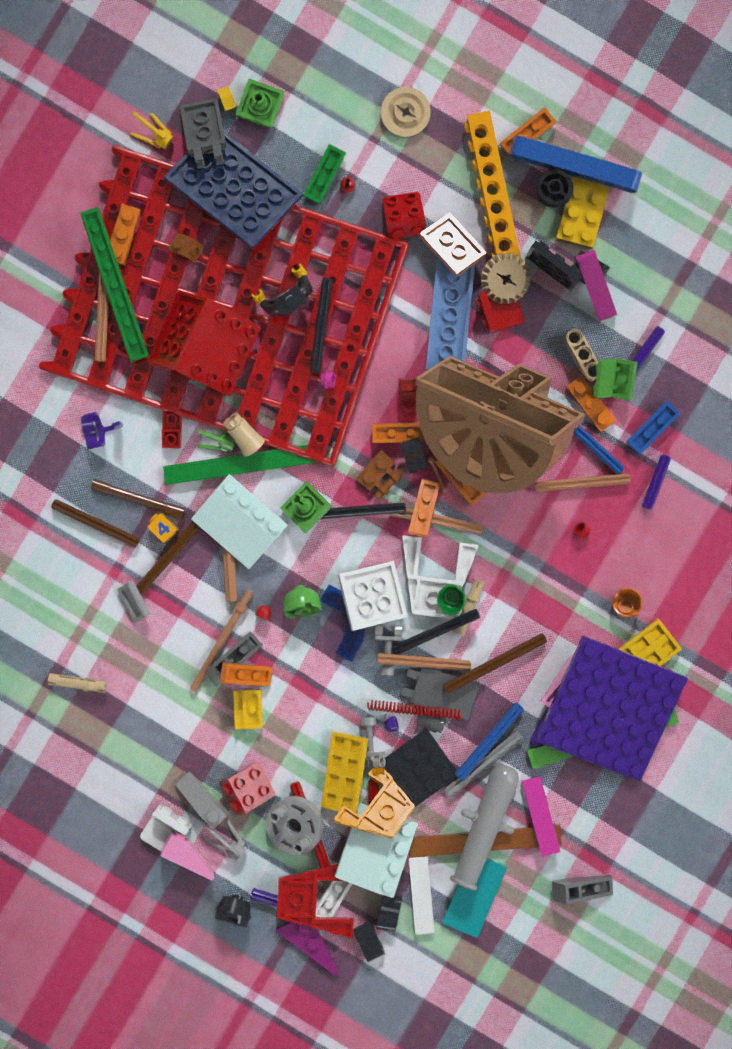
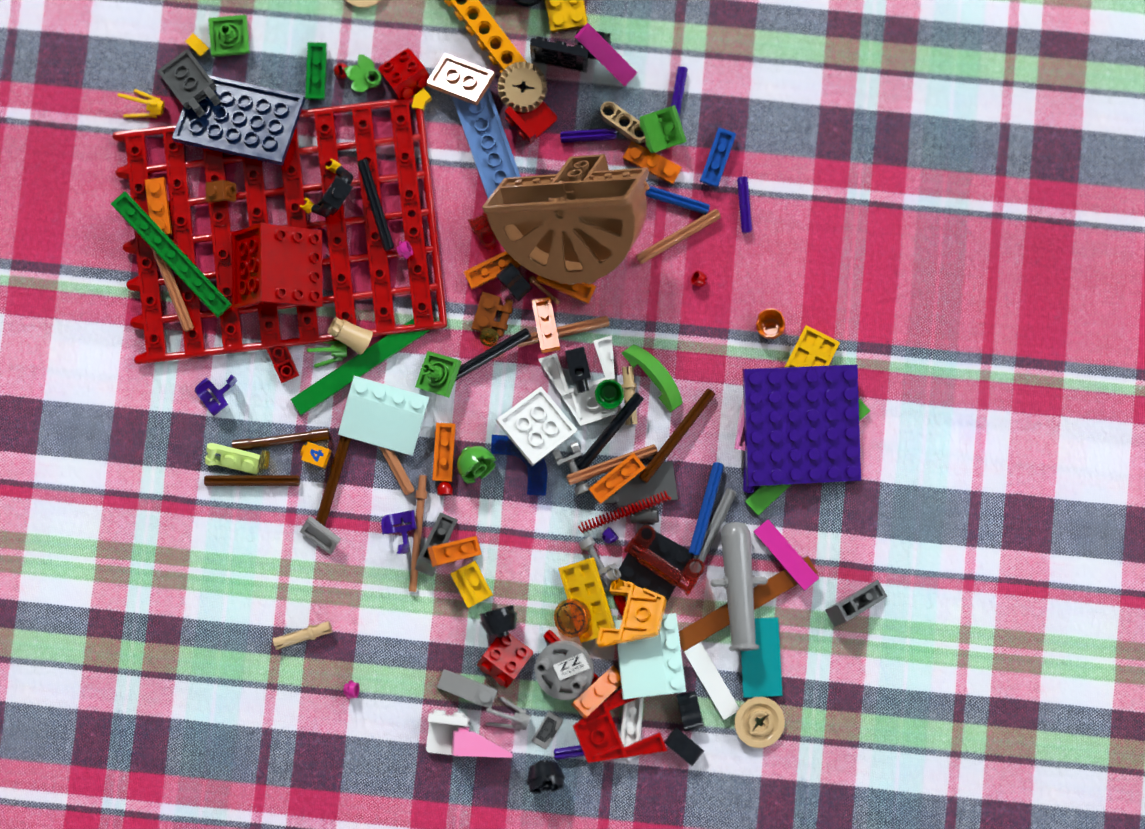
camera: 25 degrees left, 5 degrees down
(86, 495) = (232, 458): none -> yellowish green plate
(98, 751) = (351, 689): none -> dark pink plate
(115, 510) = (264, 462): none -> clear yellow tile
(207, 617) = (392, 519): none -> dark purple helmet
(255, 868) = (547, 730): none -> sticker
(257, 755) = (499, 621): none -> black cone
(278, 579) = (444, 452): none -> orange plate
(302, 826) = (571, 666): none -> white sticker
(310, 942) = (629, 773): magenta wing -> none
(315, 859) = (597, 692): none -> plate
(323, 782) = (572, 618): none -> clear orange tile
(364, 195) = (360, 73): none -> bright green plate
(367, 494) = (489, 337): none -> clear yellow tile
(407, 246) = (421, 99): none -> yellow piece
(422, 678) = (616, 478): none -> orange plate
(424, 775) = (661, 566): none -> clear red piece
(434, 553) = (576, 360): none -> black torso
(439, 962) = (772, 721): none -> tan gear
(503, 599) = (657, 373): none -> bright green slope
(544, 351) = (588, 135): none -> dark purple axle

